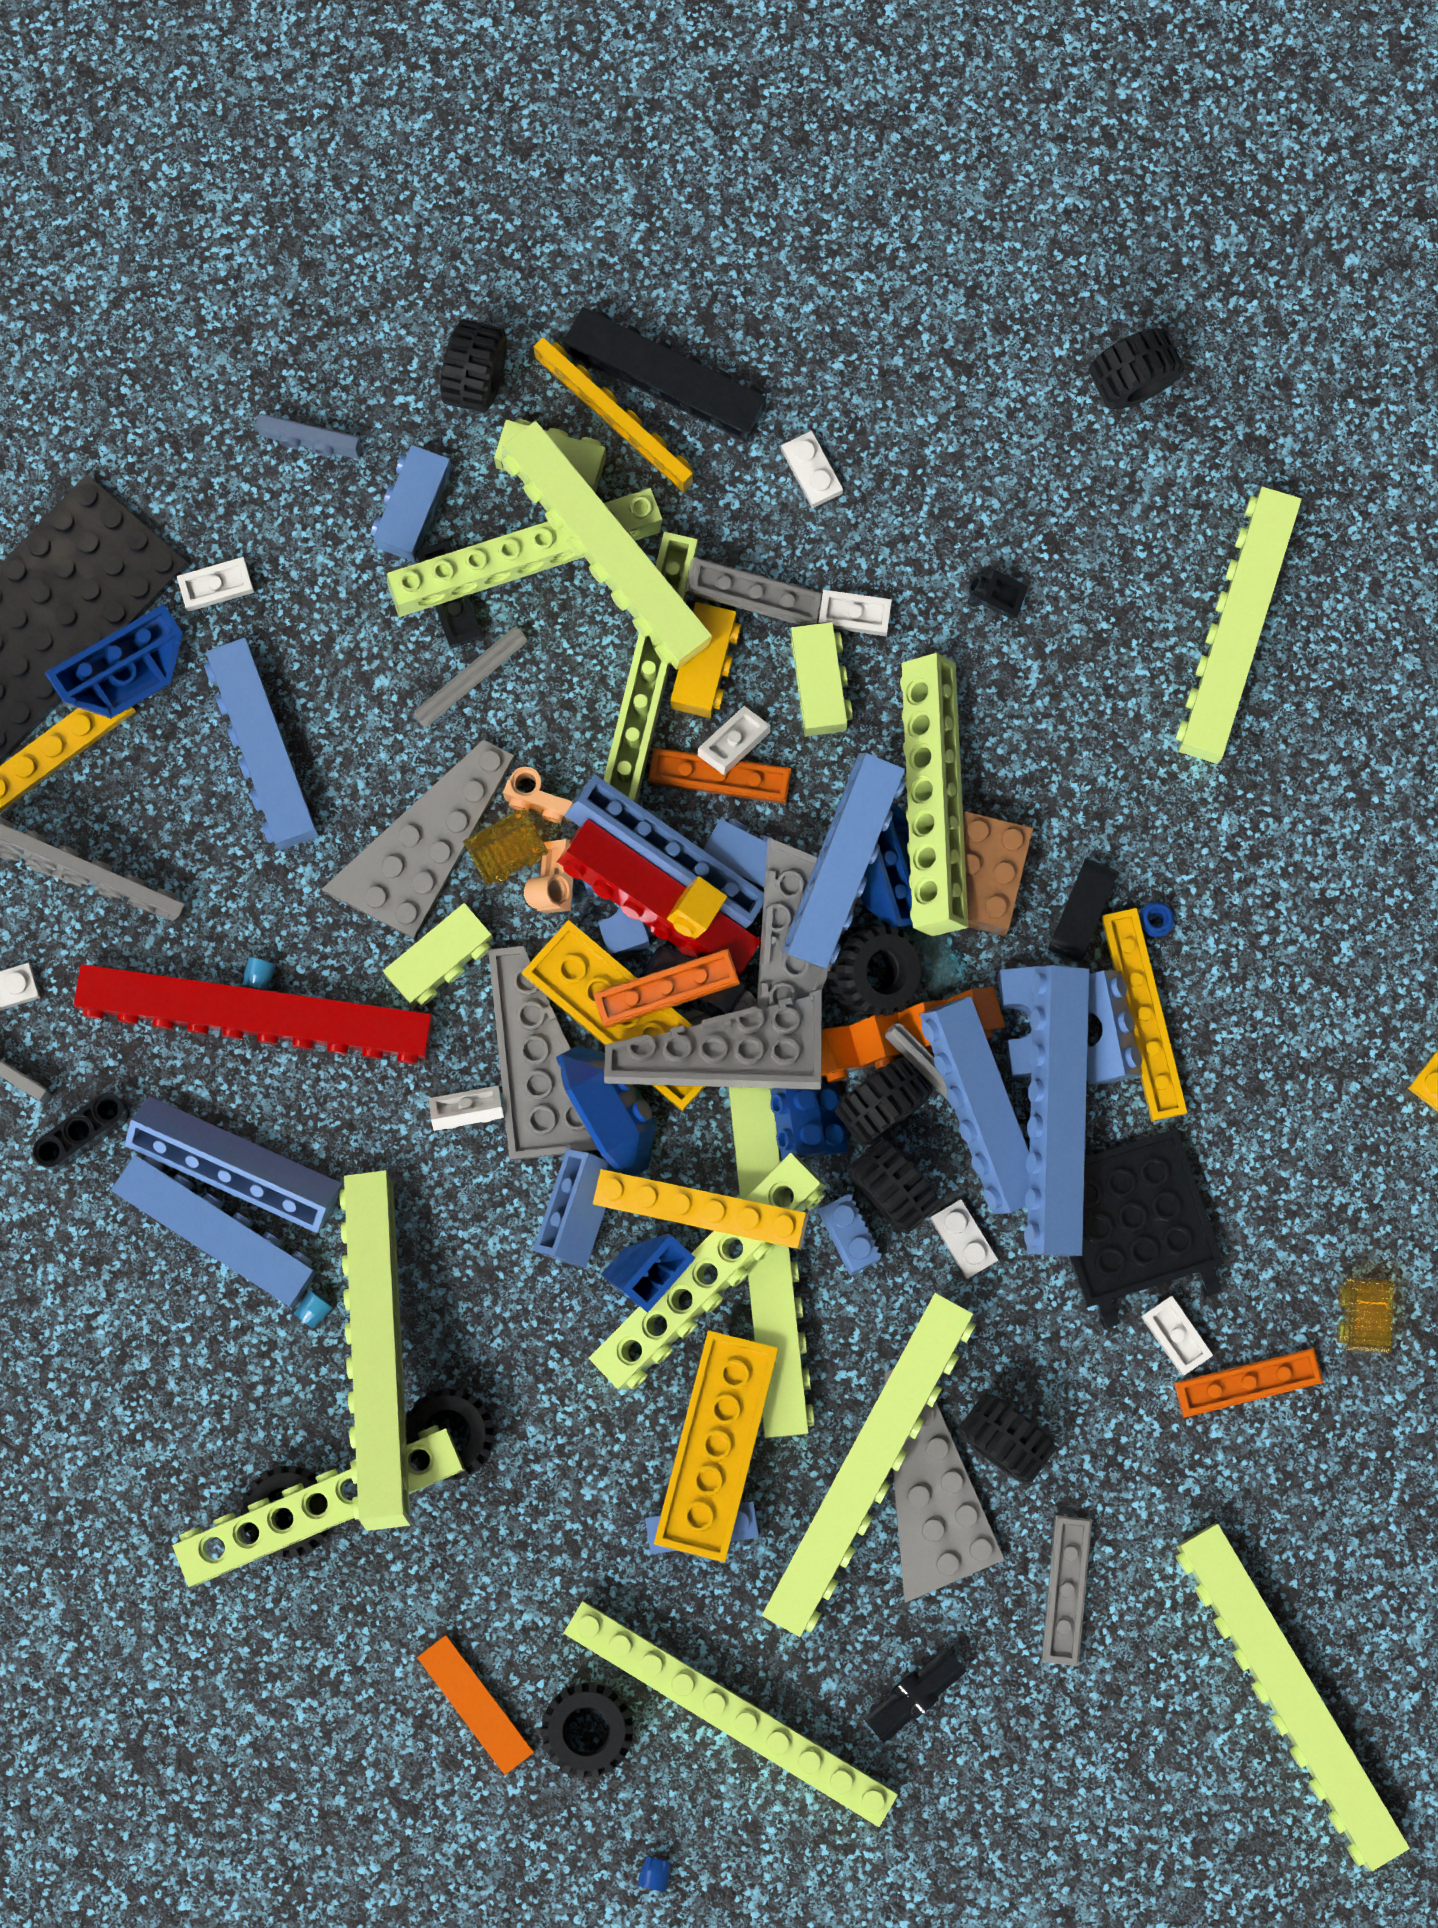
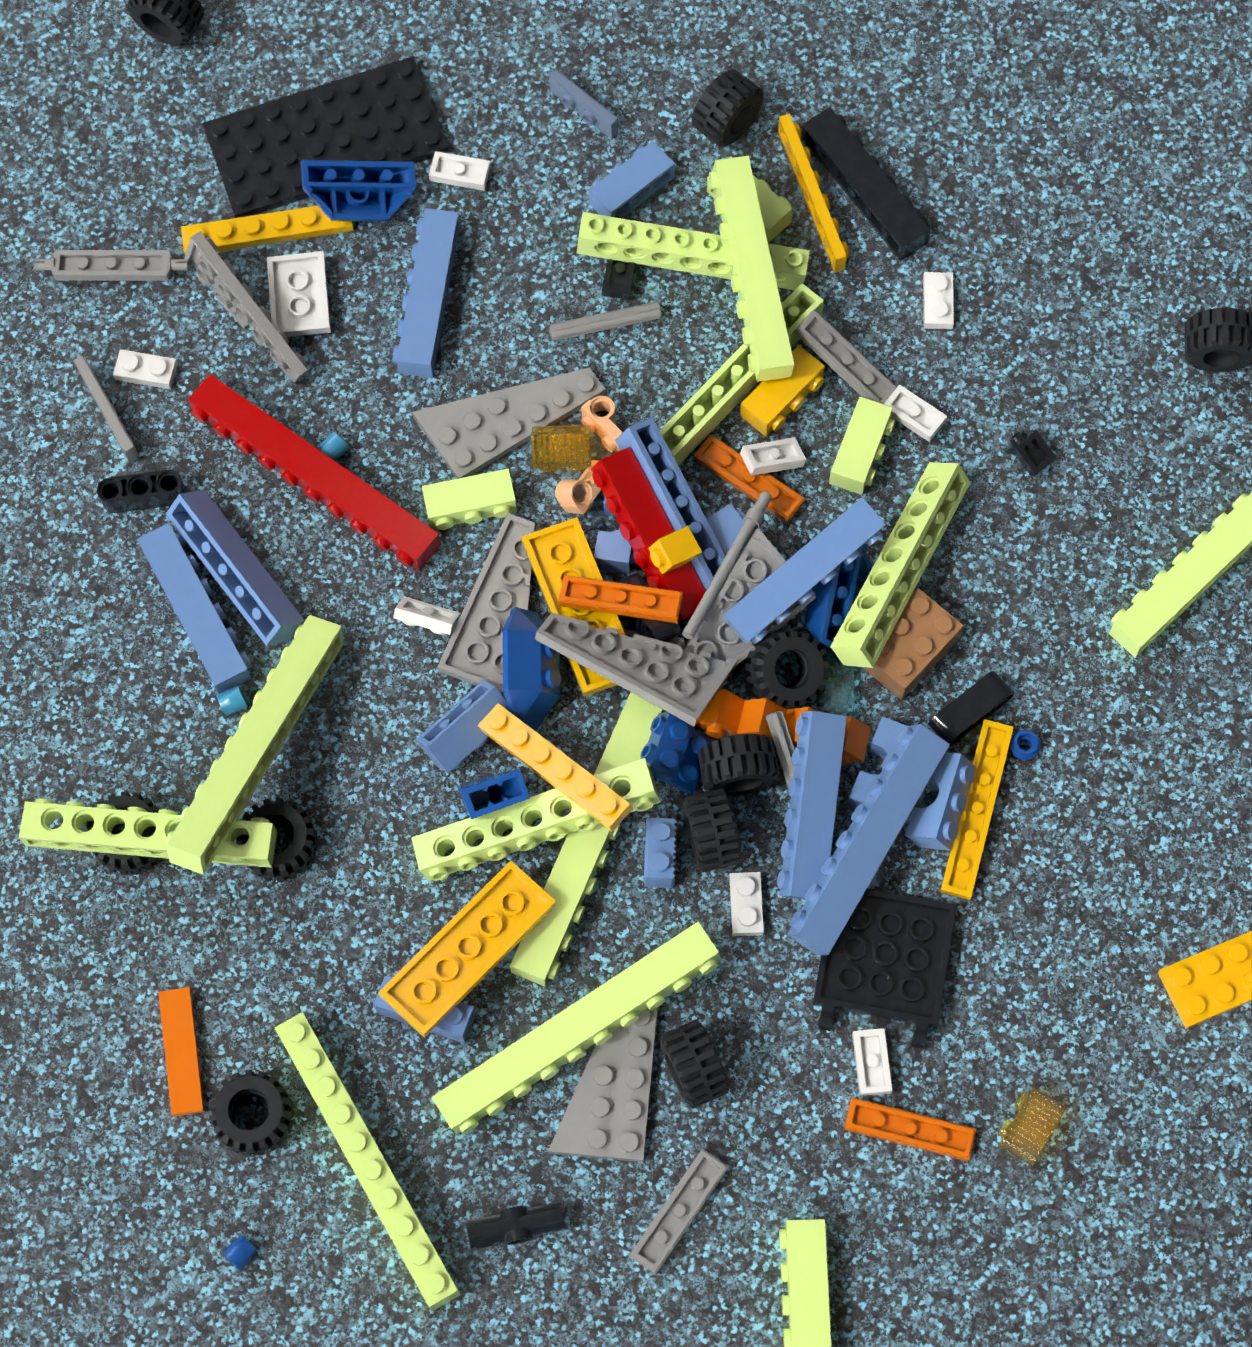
camera: 30 degrees right, 10 degrees down
(120, 818) = (299, 293): none -> white plate
(755, 825) = (751, 521): none -> light grey bar

